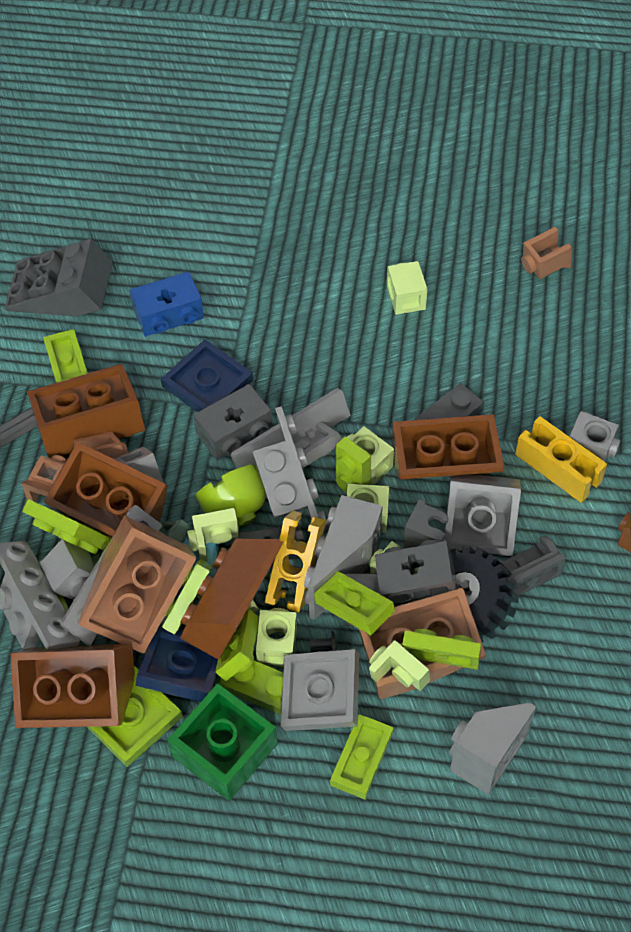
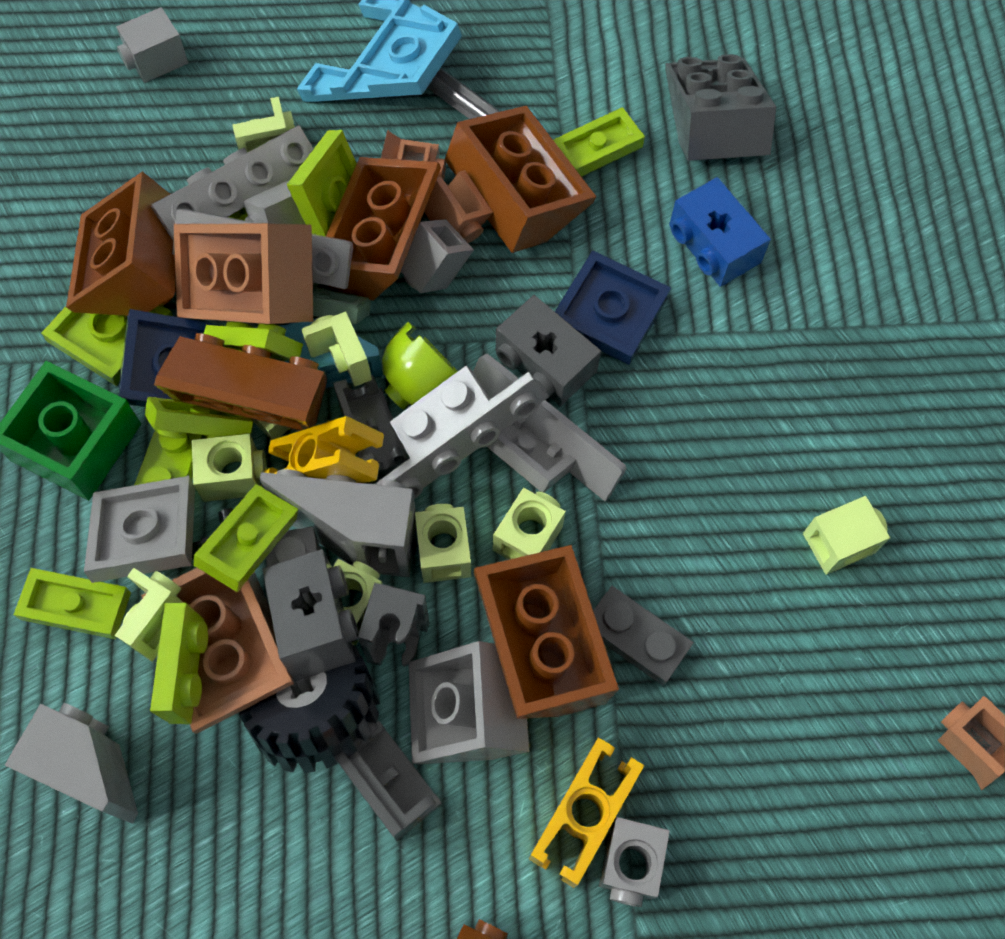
camera: 75 degrees right, 10 degrees up
(352, 464) = (488, 506): lime plate -> none

